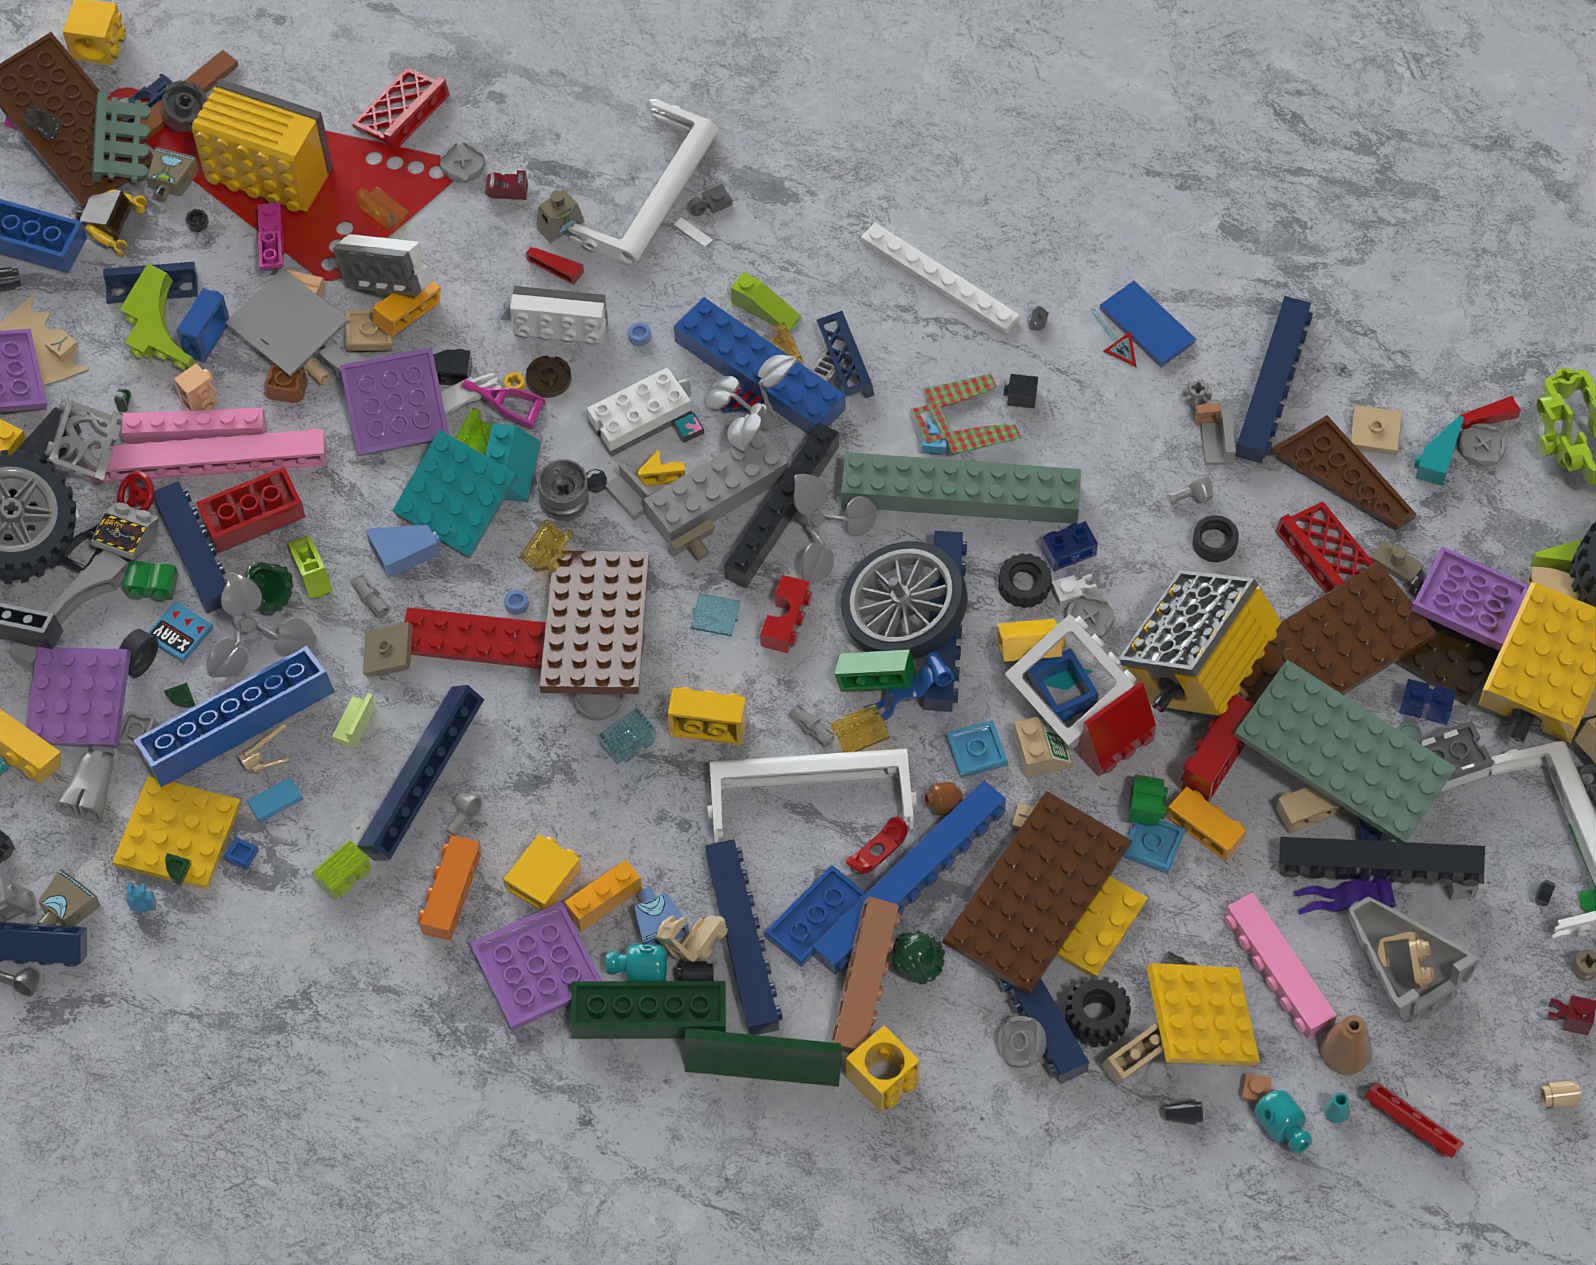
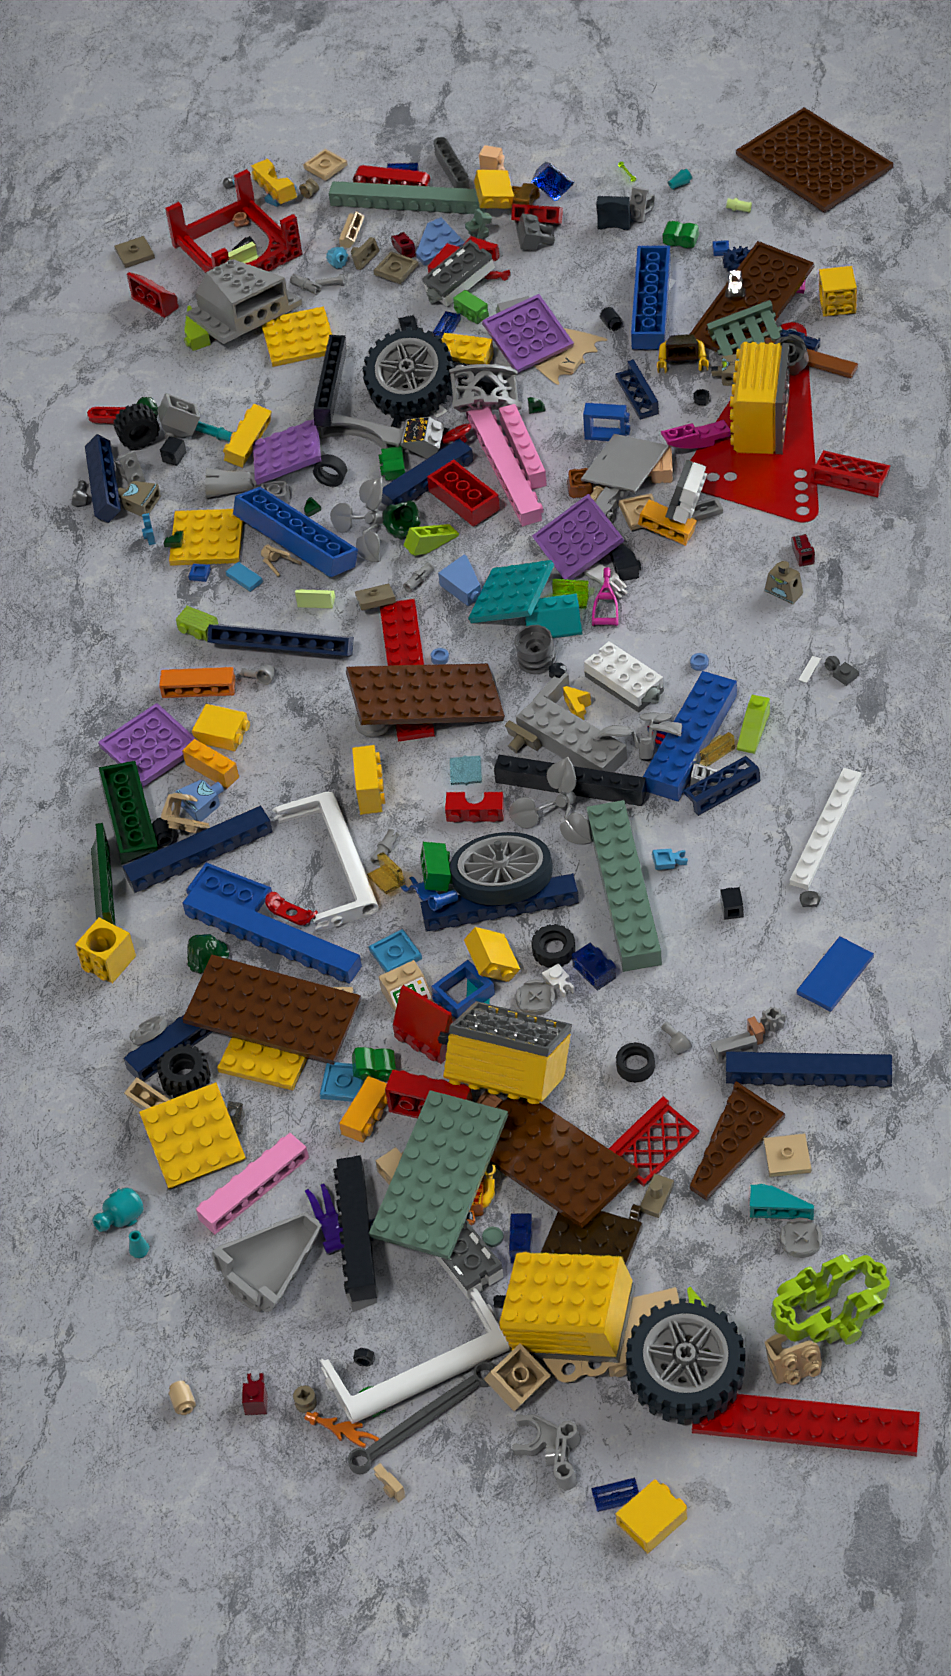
camera: 80 degrees right, 10 degrees down
(146, 312) = (606, 390): lime arch -> none
(180, 631) = (350, 490): dark azure tile -> none
(196, 389) = (549, 435): light nougat brick -> none
(381, 207) = (753, 487): clear yellow panel -> none
(462, 162) = (815, 520): light grey tile -> none
(514, 376) = (626, 599): yellow bush -> none
(545, 546) = (488, 655): clear yellow panel -> none
(548, 376) = (641, 621): dark brown tile -> none
(556, 265) = (740, 601): red piece -> none
(557, 314) = (688, 605): white piece -> none
(628, 736) = (340, 742): clear light blue brick -> none
(639, 963) = (157, 794): teal piece -> none
(665, 193) = (838, 638): white piece -> none
(688, 427) = (624, 711): tile -> none
(865, 973) = (178, 920): nougat brick -> none
(943, 797) = (342, 936): dark orange head -> none
(967, 438) = (709, 855): piece -> none
(1122, 348) = (803, 961): piece -> none
(1125, 679) = (469, 987): white piece -> none
(1185, 1112) = (115, 1149): black cone -> none
(1255, 1088) = (147, 1191): nougat plate -> none
(1347, 1046) = (192, 1240): medium nougat cone -> none
(1407, 1115) = (138, 1299): red plate -> none
(1419, 951) = (269, 1261): tan piece -> none
(1470, 598) = (637, 1236): medium lavender plate -> none
(1492, 413) = (834, 1235): red piece -> none

